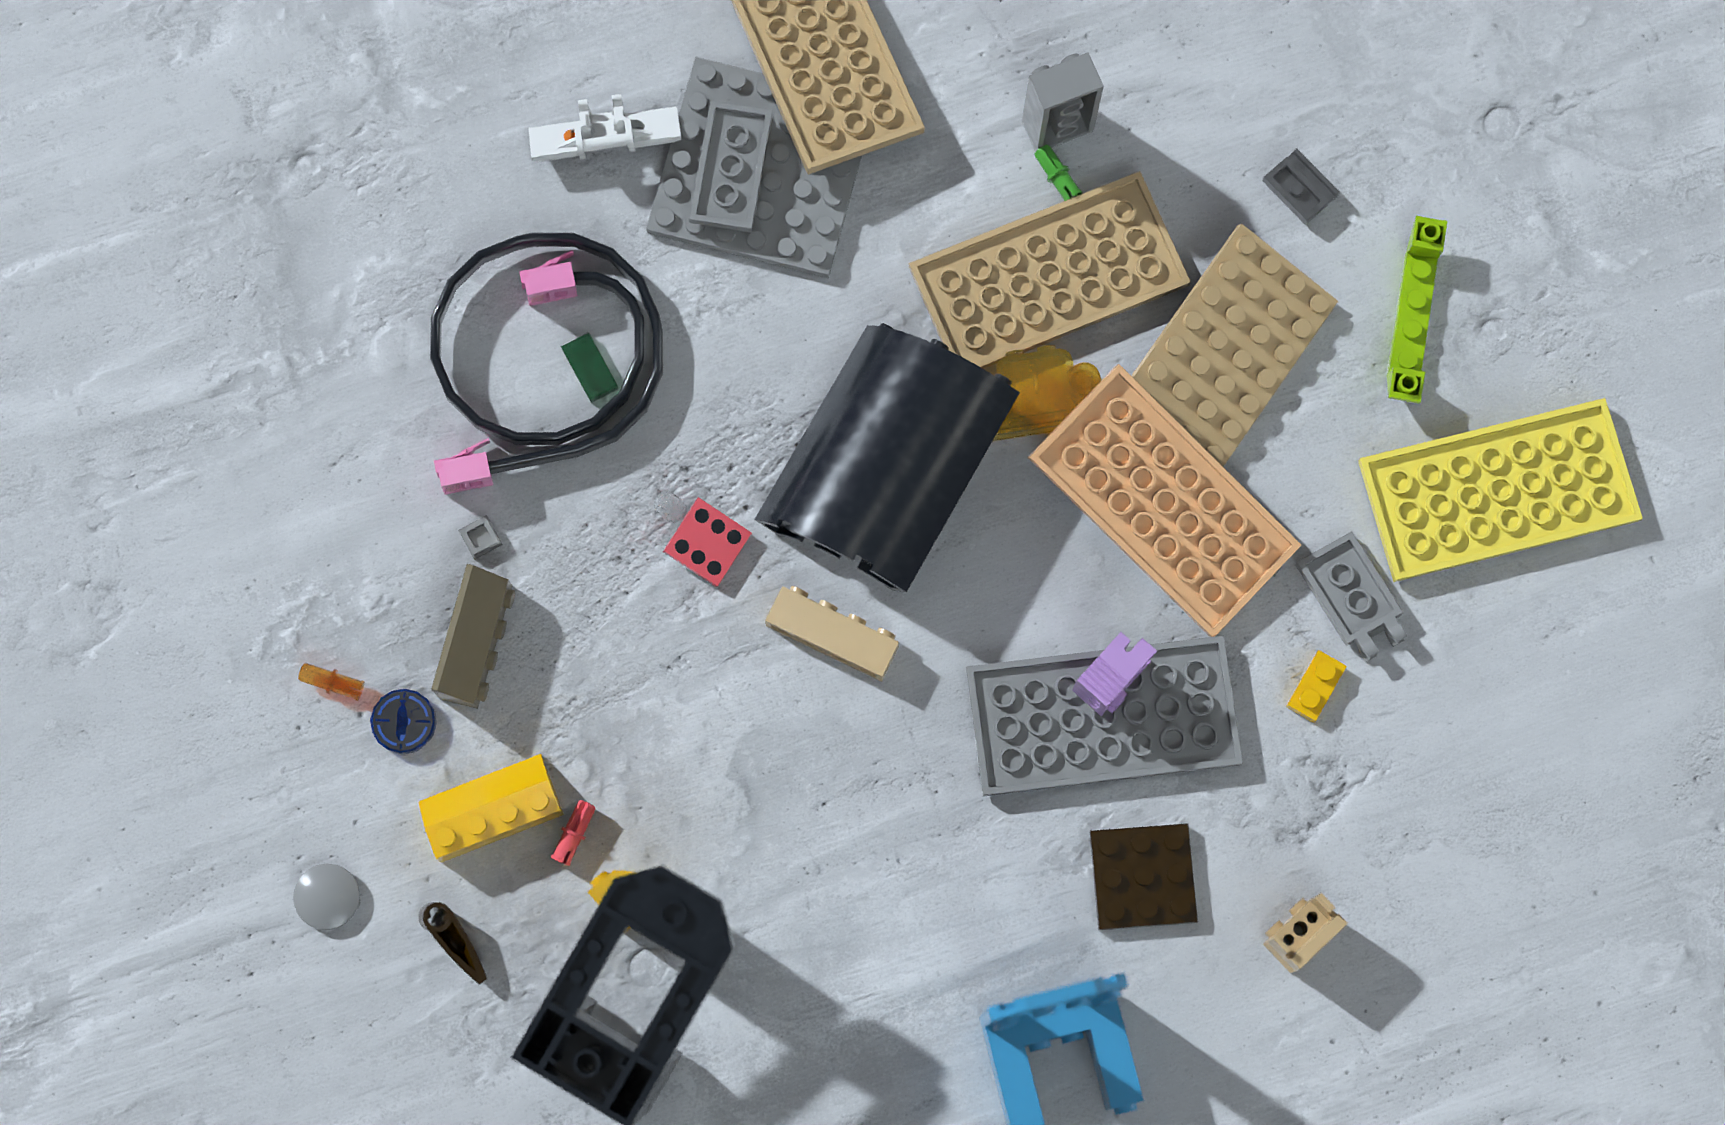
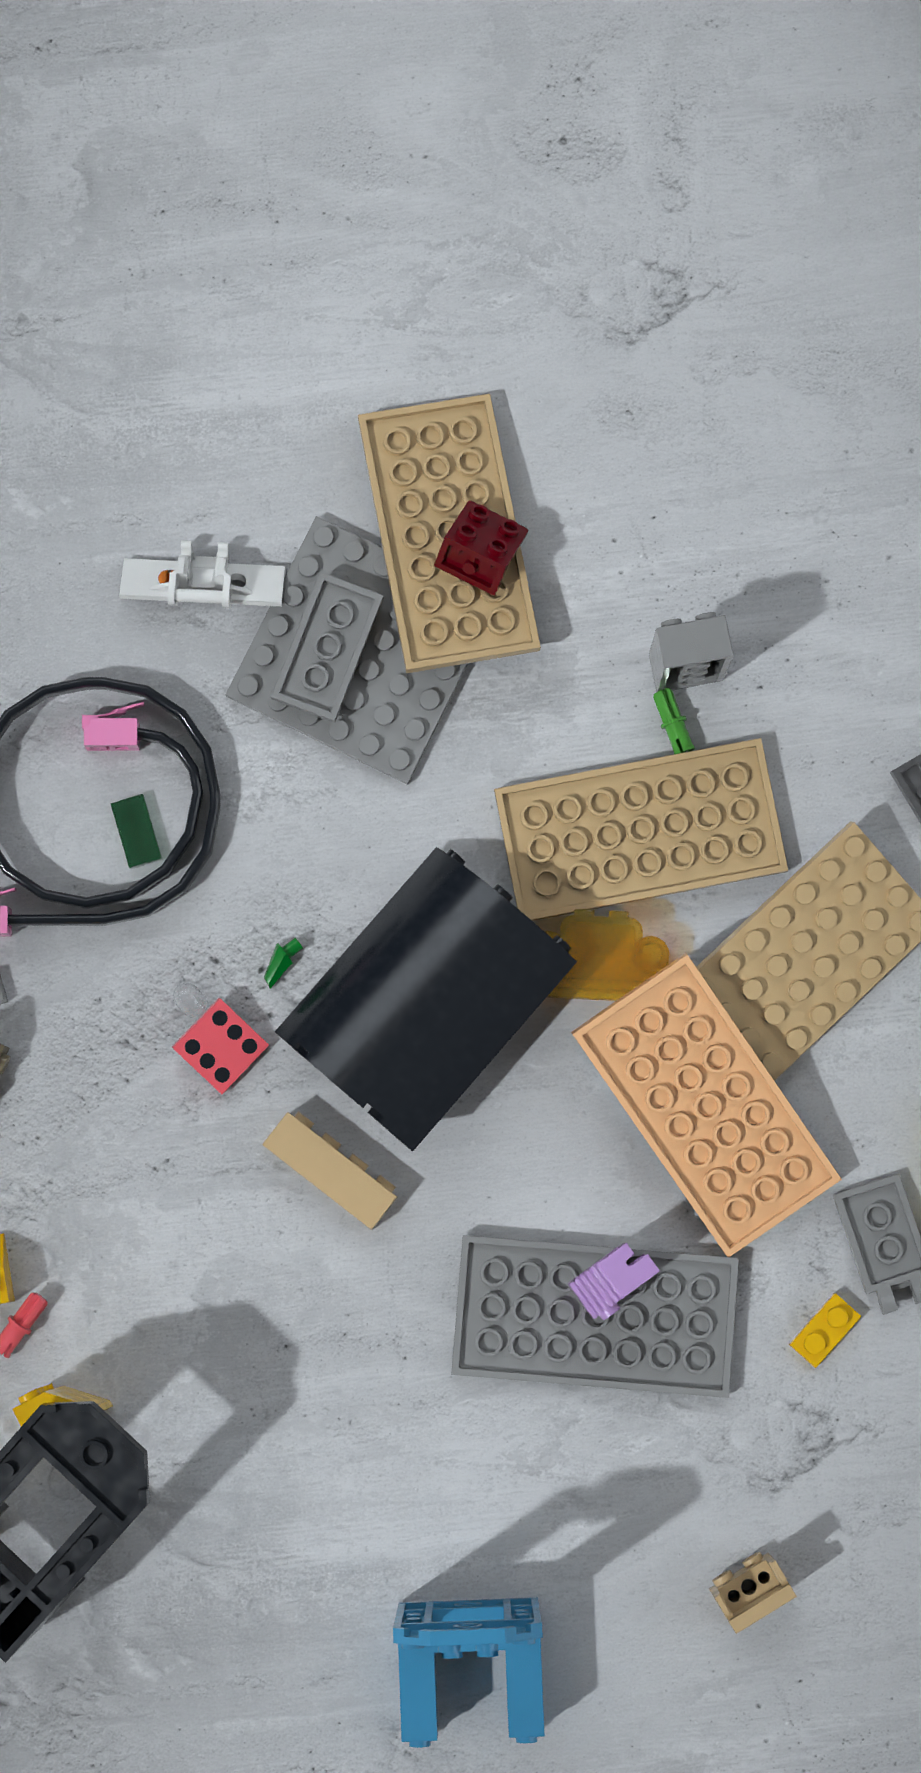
camera: 15 degrees right, 5 degrees up
(746, 456) = (281, 961): none -> green bar
(851, 50) = (480, 547): none -> dark red bracket
(1143, 876) = (599, 1493): dark brown plate -> none

